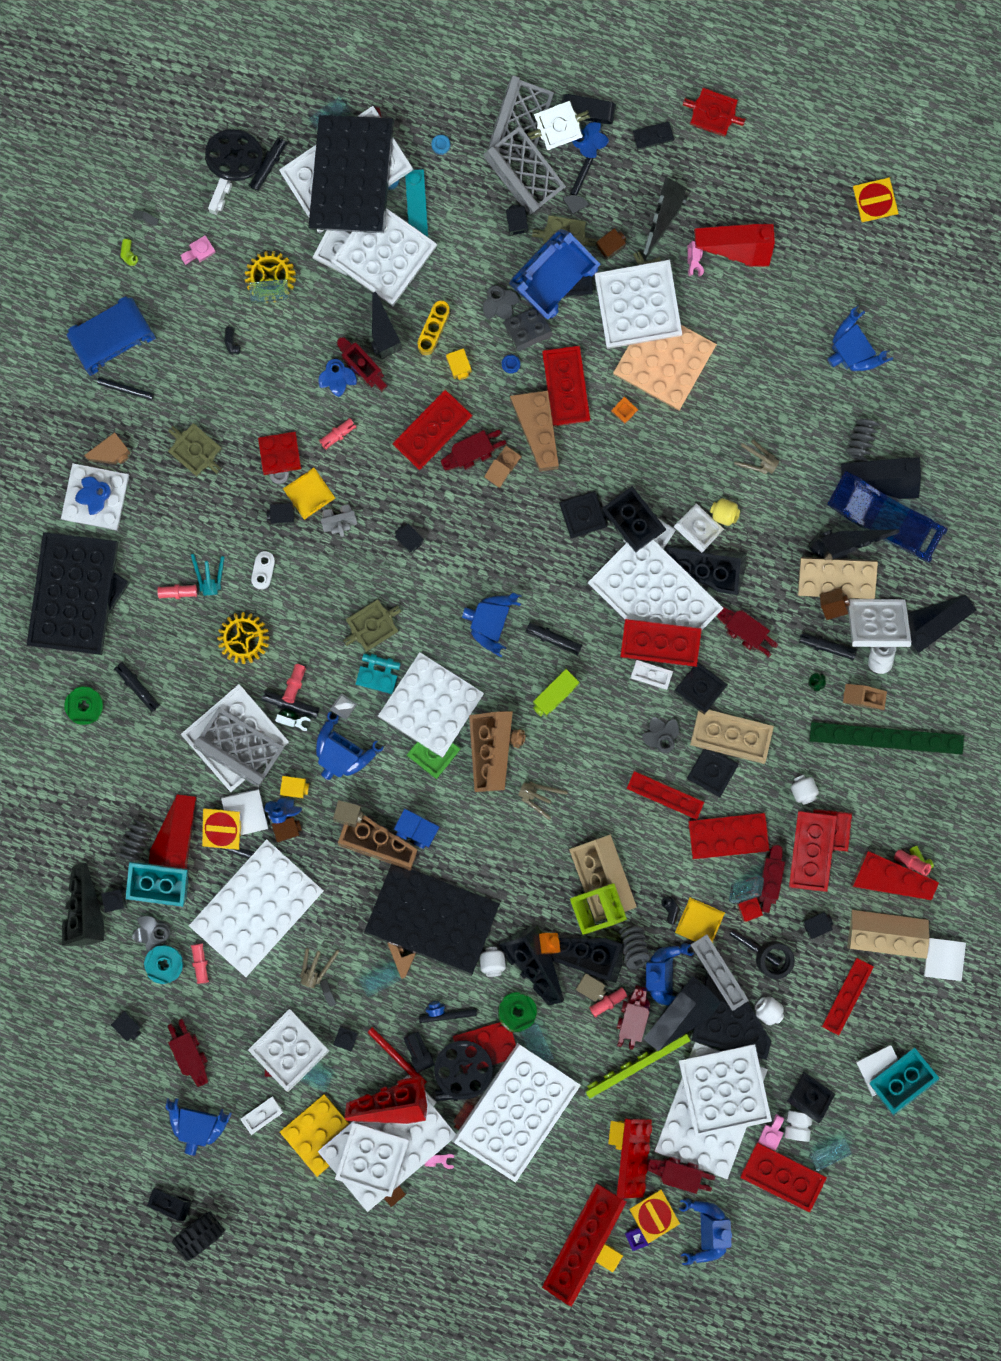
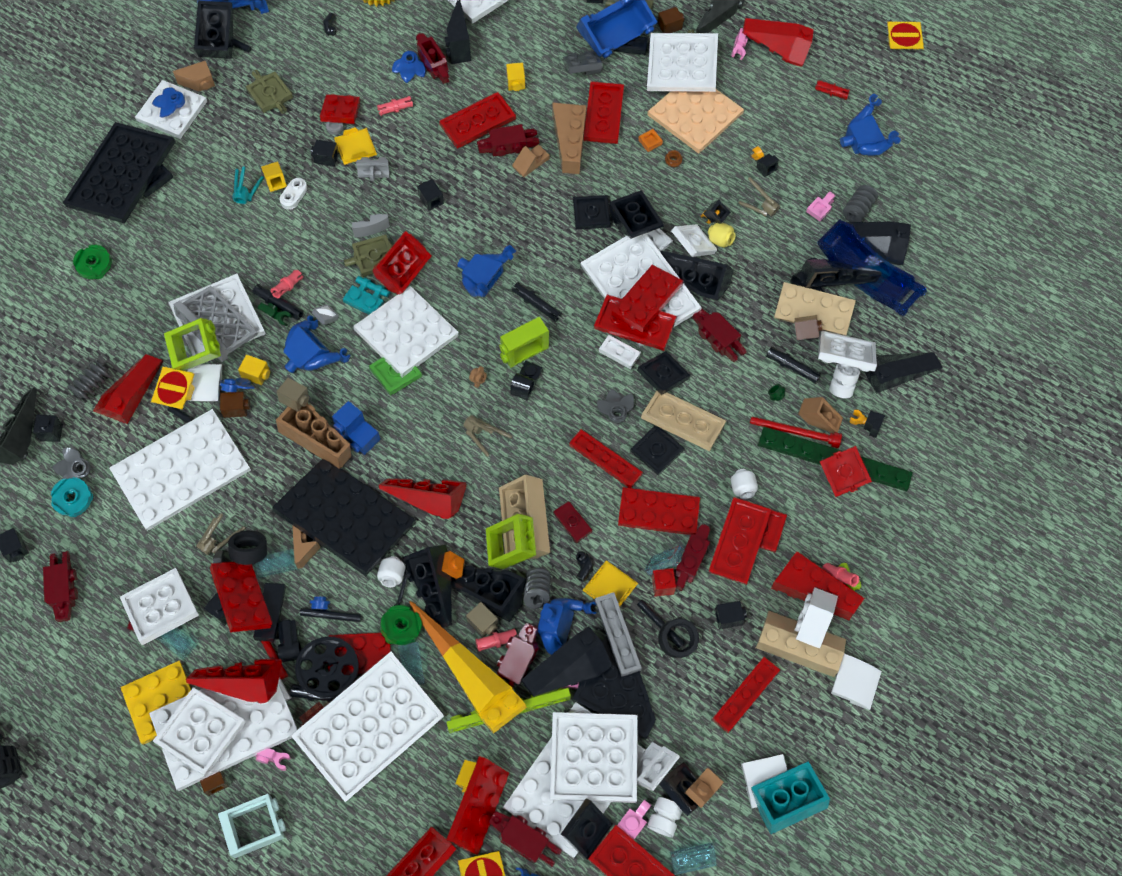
camera: 15 degrees right, 20 degrees down
(111, 391) = (214, 29): none -> black slope
(137, 687) = (143, 251): black pin -> none
(157, 884) = (93, 417): teal slope -> none
(177, 591) = (211, 192): coral pin -> none
(195, 1126) = (36, 658): blue torso -> none
(199, 963) = (106, 505): coral pin -> none
(216, 794) = (177, 349): none -> lime window
(238, 558) = (274, 176): none -> yellow brick
(252, 635) = (250, 234): yellow gear -> none
(261, 1115) = (109, 666): white plate -> none
(352, 986) = (247, 556): none -> black tyre
(362, 1024) = (240, 596): none -> red plate
(363, 588) = (376, 224): none -> light grey slope
(391, 1028) = (273, 597): none -> black tile
(406, 631) = (401, 263): none -> red slope
(425, 1235) = (226, 820): none -> light aqua window
(433, 337) = (502, 47): yellow beam -> none
(490, 749) = (448, 376): medium nougat wedge -> none
(500, 305) = (564, 43): dark grey plate -> none
(507, 962) = (406, 575): none -> black hinge
(509, 877) = (436, 499): none -> red wedge
(510, 364) = (560, 87): blue plate -> none
(566, 728) = (525, 381): none -> black plate
(616, 1058) = (487, 692): none -> yellow plate
(649, 867) = (572, 522): none -> dark red plate
(656, 421) = (673, 154): none -> dark orange plate
(667, 615) = (647, 298): none -> red plate
(715, 492) = (716, 212): none -> black piece
(733, 1154) = (586, 828): none -> black tile
(754, 410) = (765, 164): none -> black piece
(769, 1010) = (661, 688): white head -> none
(780, 1085) = (654, 765): none -> white slope
(807, 293) = (832, 89): none -> red axle
(821, 451) = (821, 207): none -> bright pink plate
(827, 1093) = (704, 787): none -> medium nougat slope
(881, 718) = (832, 439): none -> red piece
(897, 914) = (815, 617): none -> white brick
(899, 754) = (845, 471): none -> red plate
(917, 691) = (871, 424): none -> black piece

